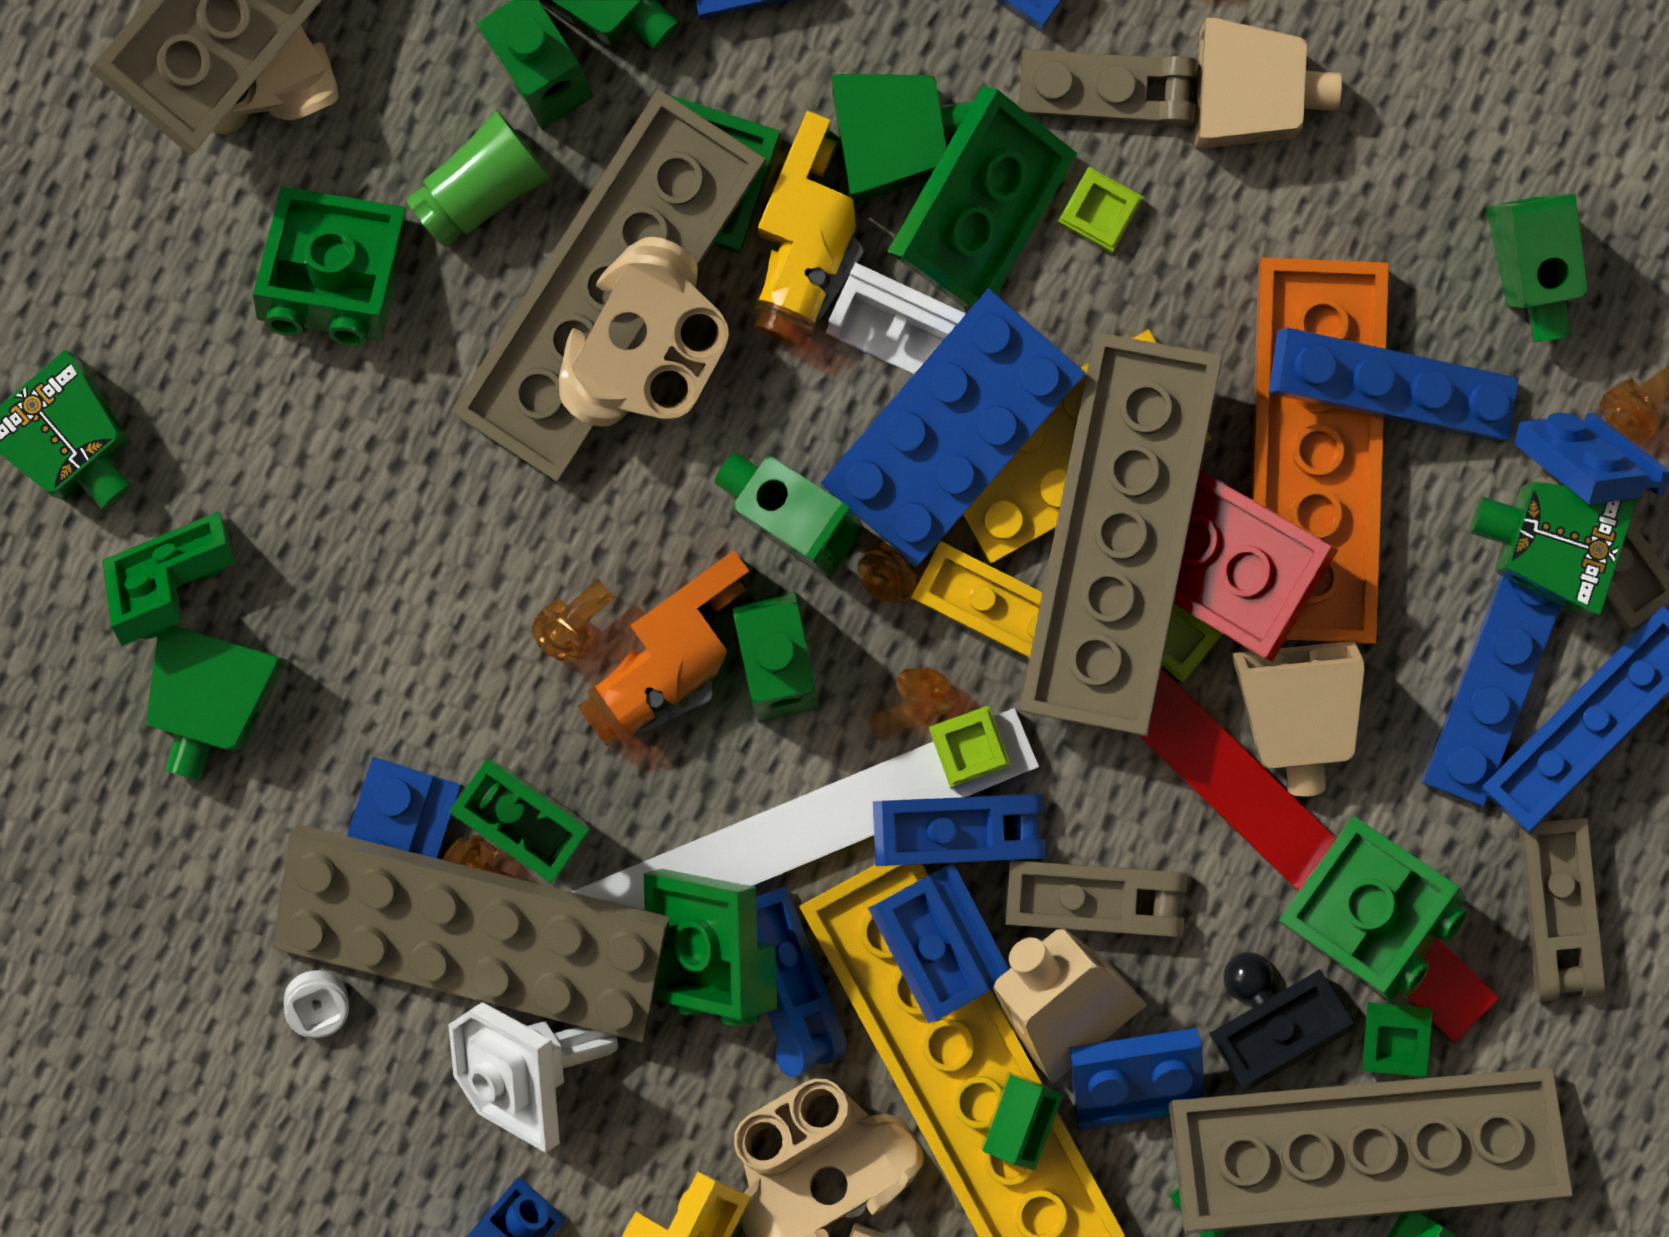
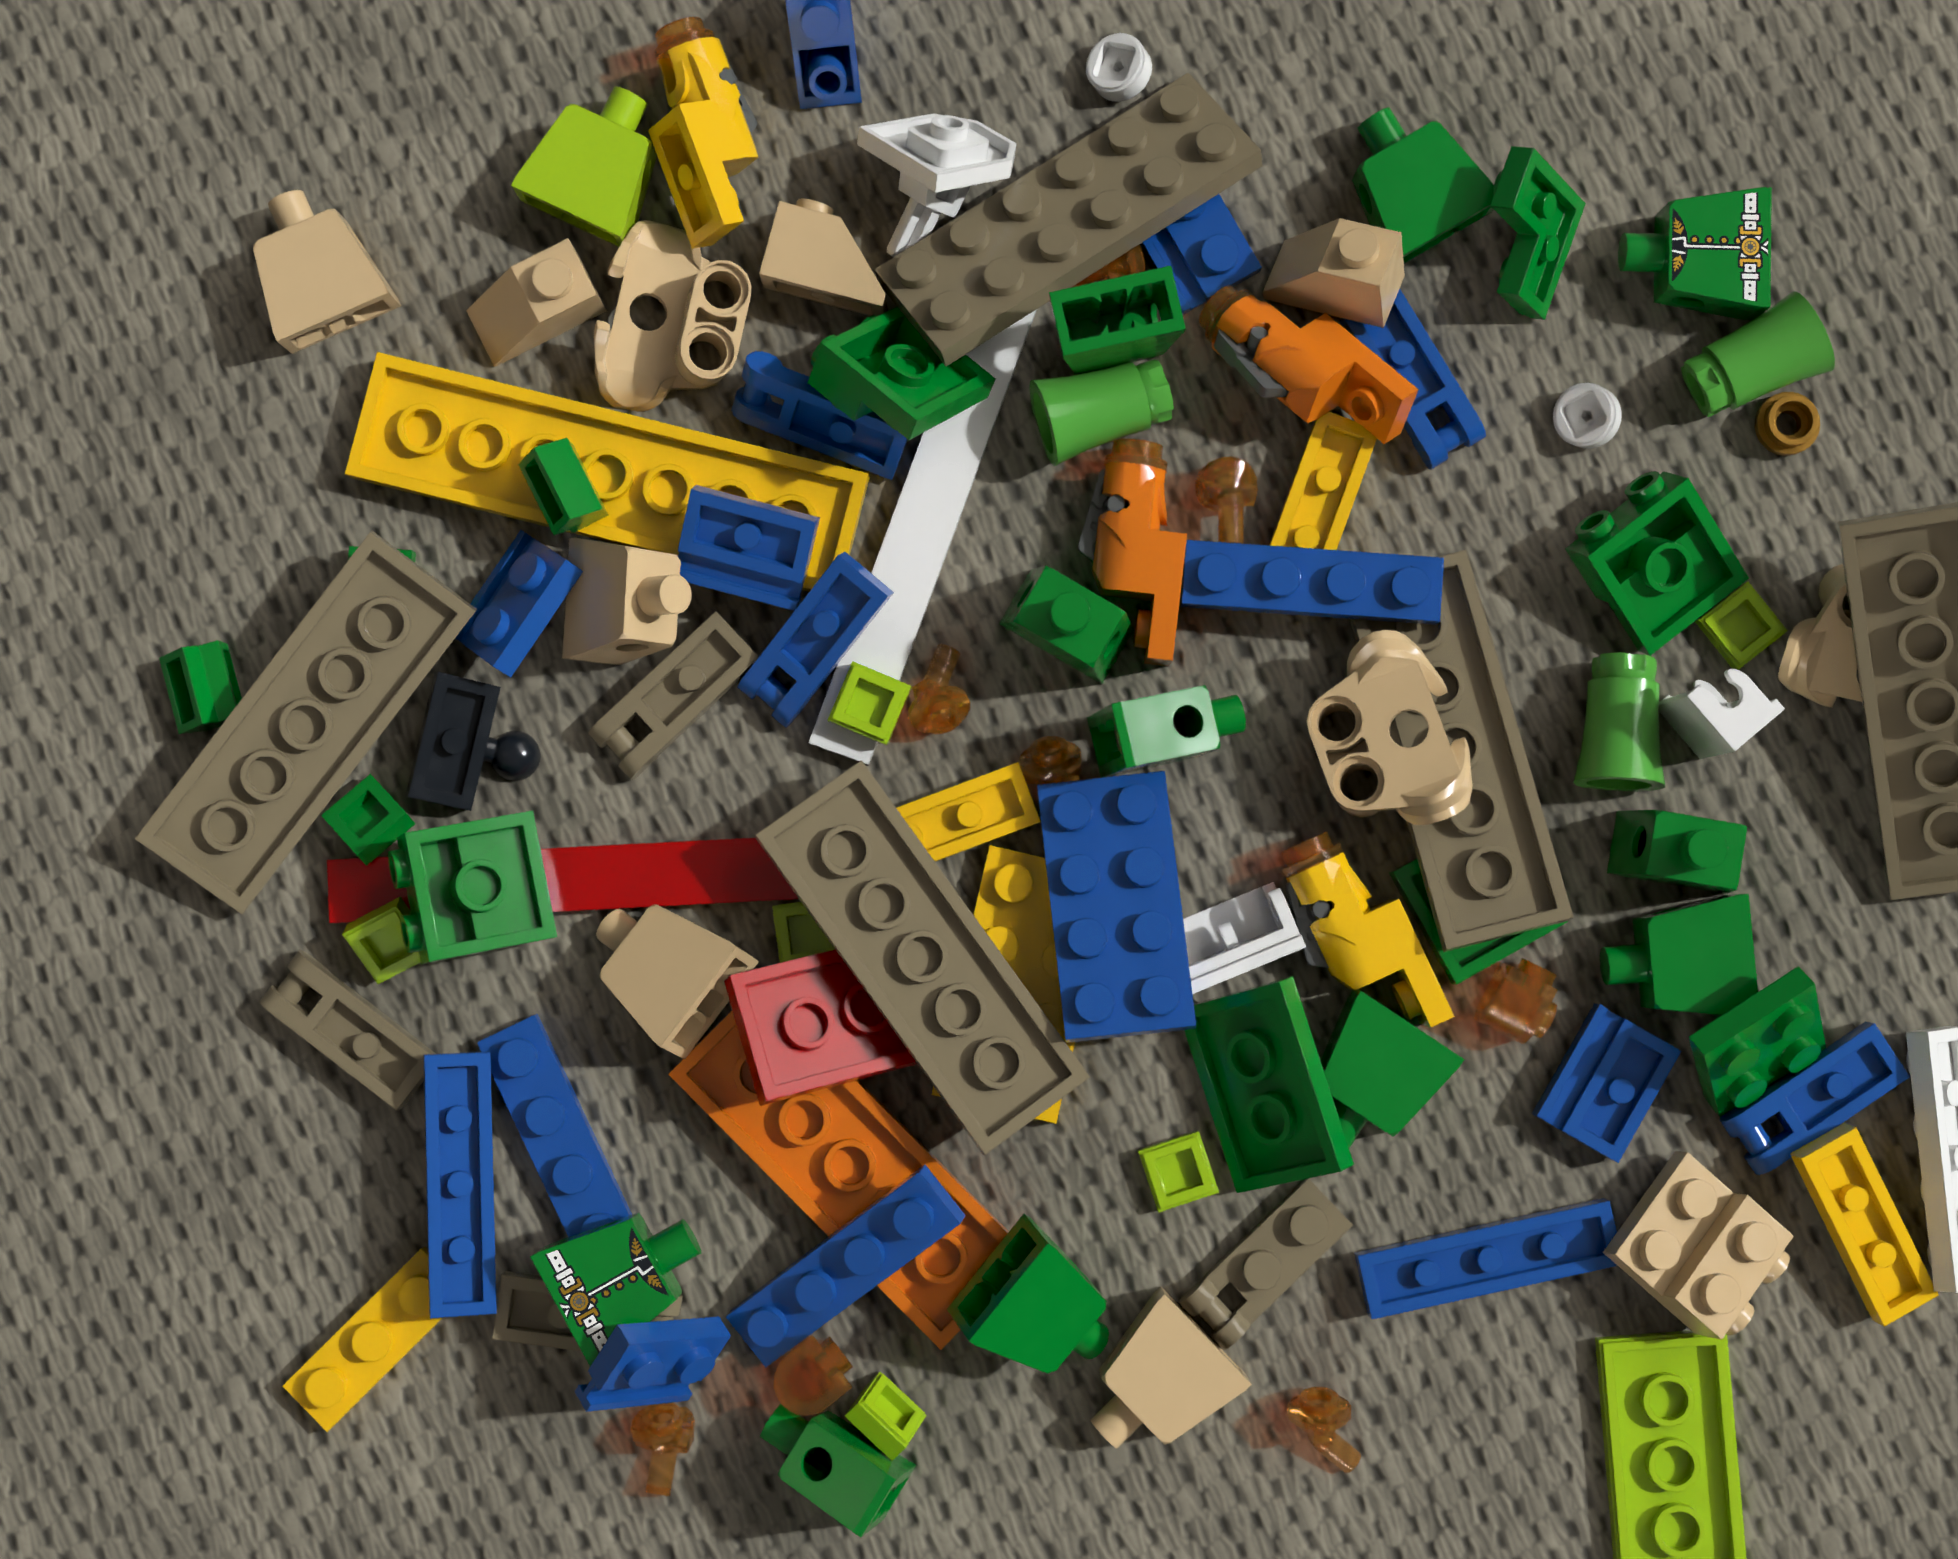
camera: 135 degrees right, 0 degrees up
(107, 325) = (1760, 357): none -> bright green plant
(121, 247) = (1801, 410): none -> pearl gold plate
(265, 413) = (1587, 415): none -> white tile
(320, 160) = (1741, 626): none -> lime tile
(328, 692) = (1340, 271): none -> tan slope
(352, 571) = (1412, 354): none -> blue plate
(412, 112) = (1713, 724): none -> white hinge
(424, 652) = (1307, 366): none -> orange plate
(519, 550) = (1324, 484): none -> yellow plate
(580, 501) = (1312, 582): none -> blue plate
(591, 779) = (1099, 407): none -> bright green plant
(670, 1093) = (819, 260): none -> tan slope
(749, 75) = (1518, 1001): none -> clear orange plate
(1295, 227) = (1031, 1303): none -> green torso
(1471, 259) = (886, 1416): none -> lime tile
(1476, 946) = (379, 941): none -> lime tile
(1495, 337) = (811, 1376): none -> clear orange plate

